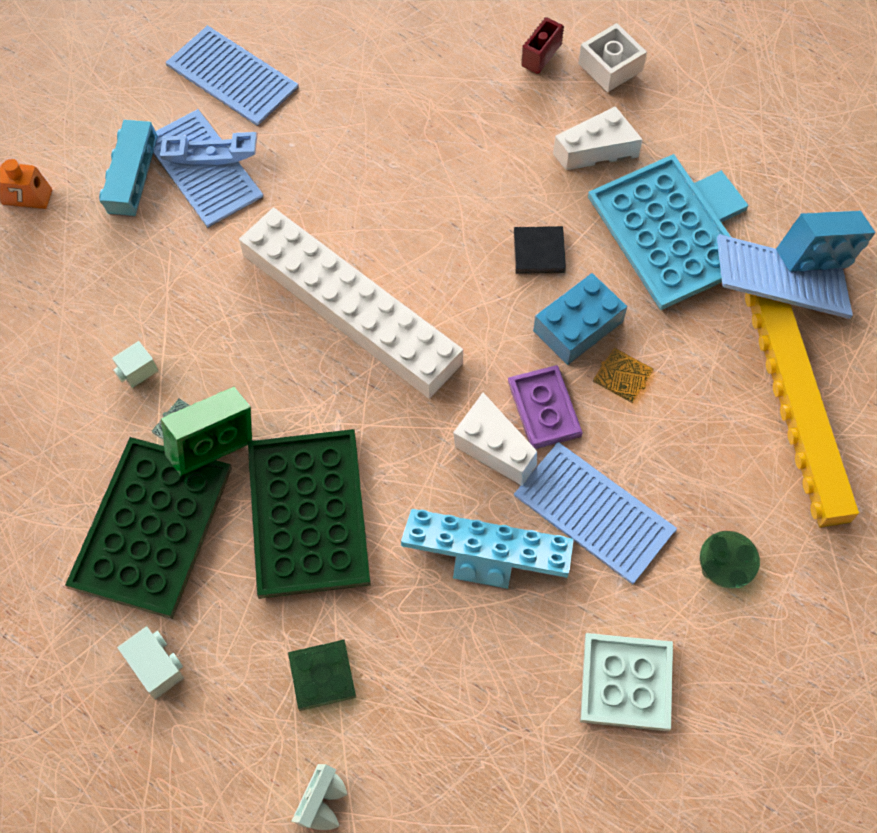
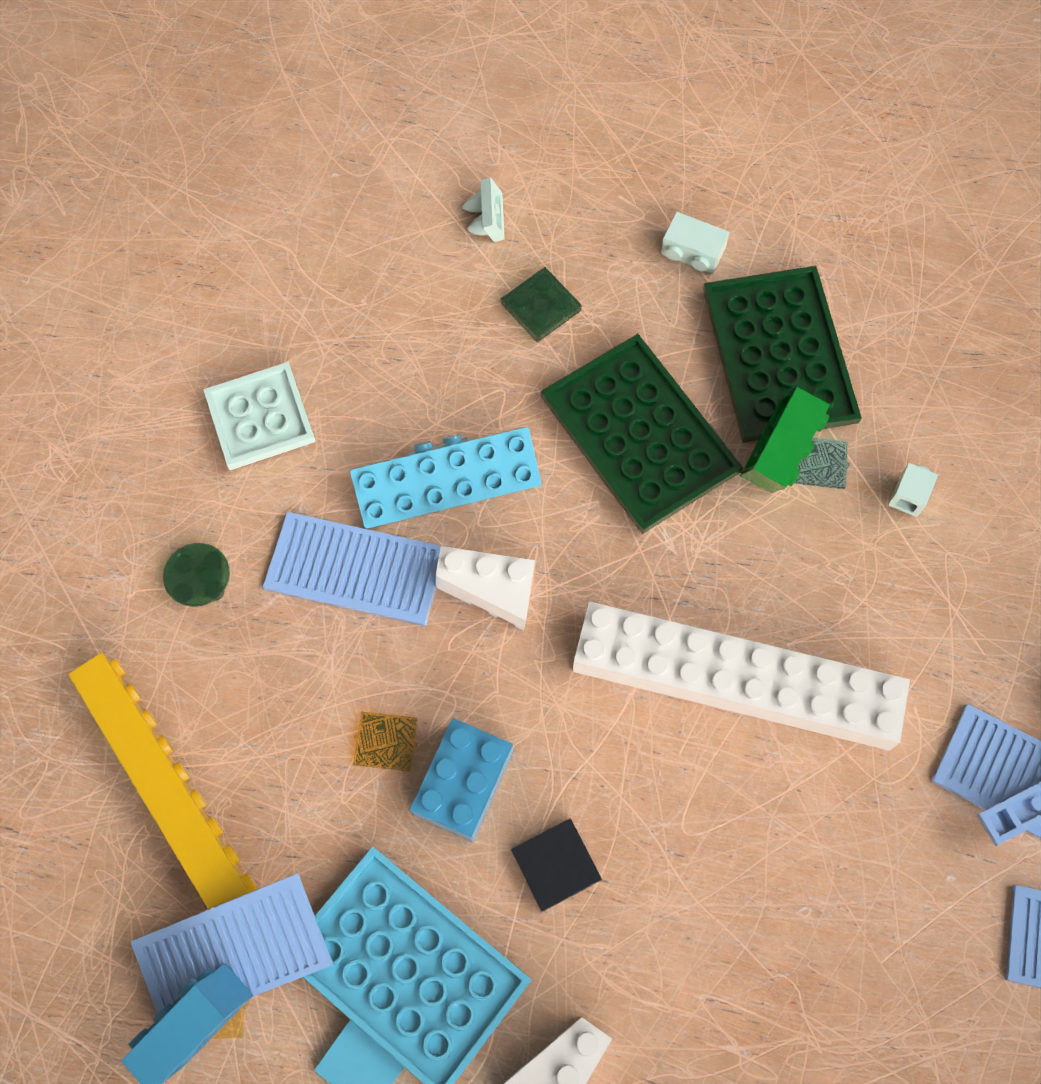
camera: 155 degrees right, 5 degrees up
(545, 407) = (457, 658): medium lavender tile -> none

